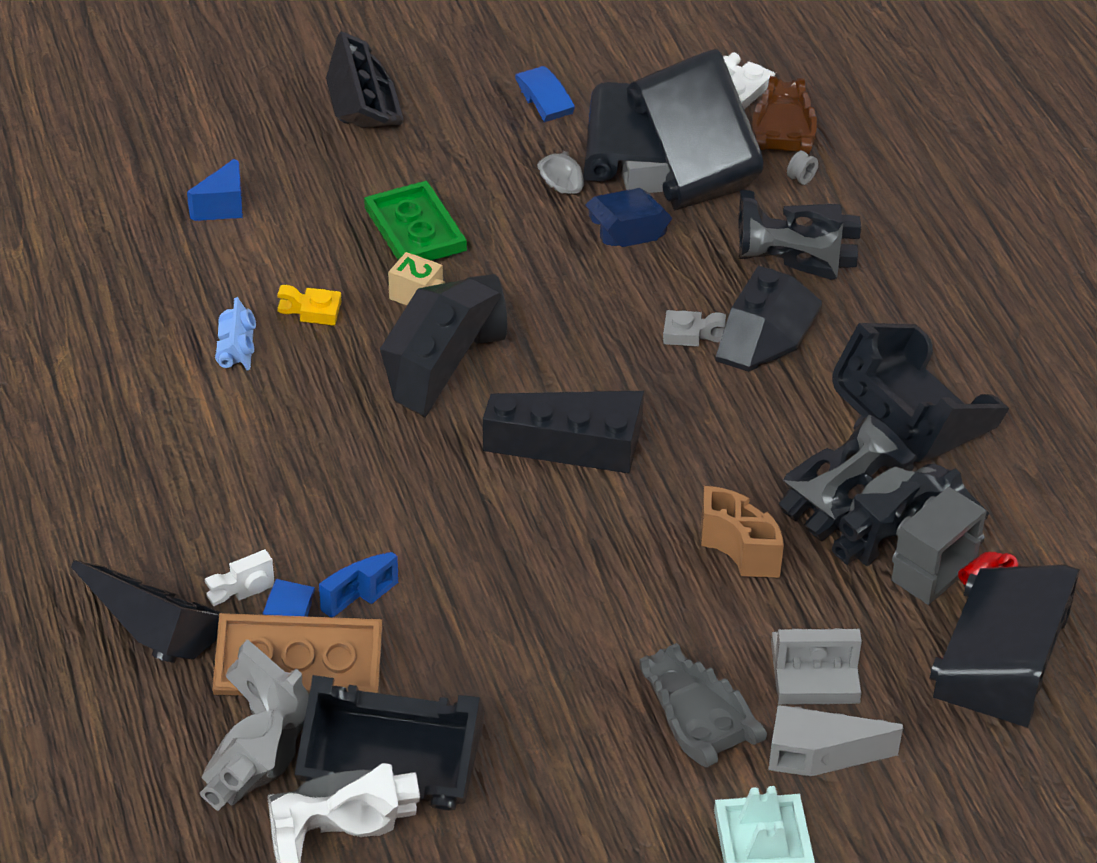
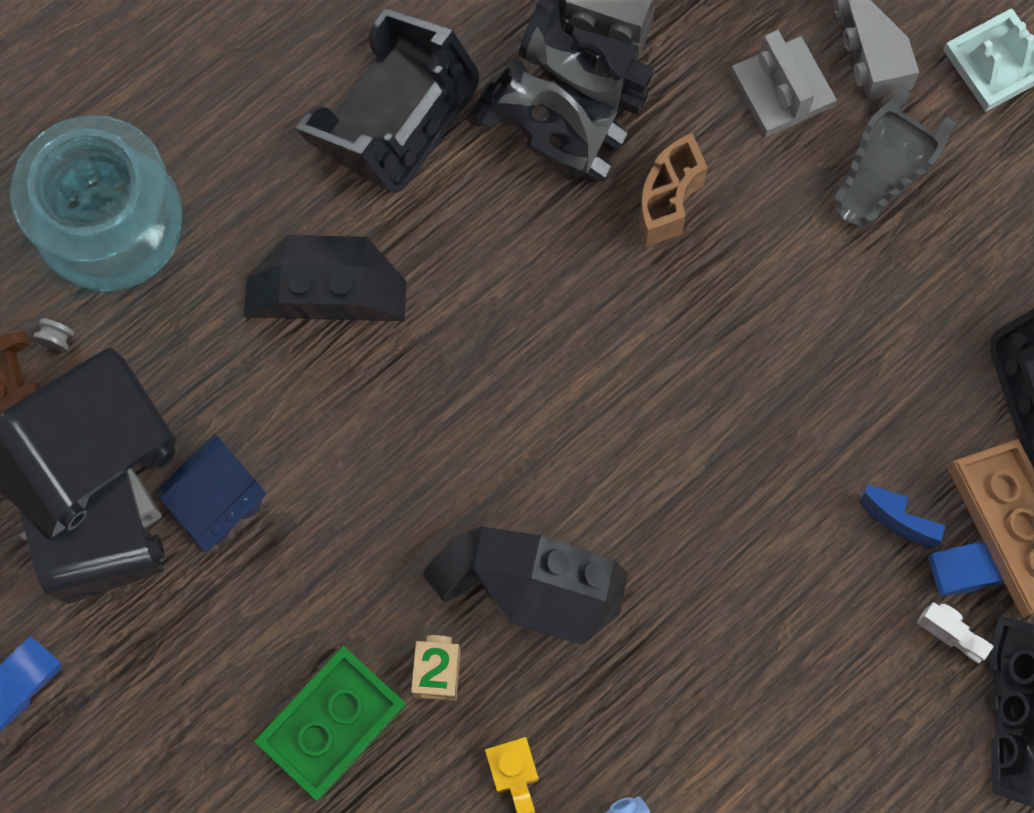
camera: 110 degrees left, 30 degrees up
(562, 173) = (165, 597): light grey piece -> none
(566, 427) = (591, 396): black wedge -> none
(689, 327) = (374, 361): light grey plate -> none
(786, 239) = (212, 280): black hips -> none
(897, 186) = (82, 243): none -> clear light blue wheel

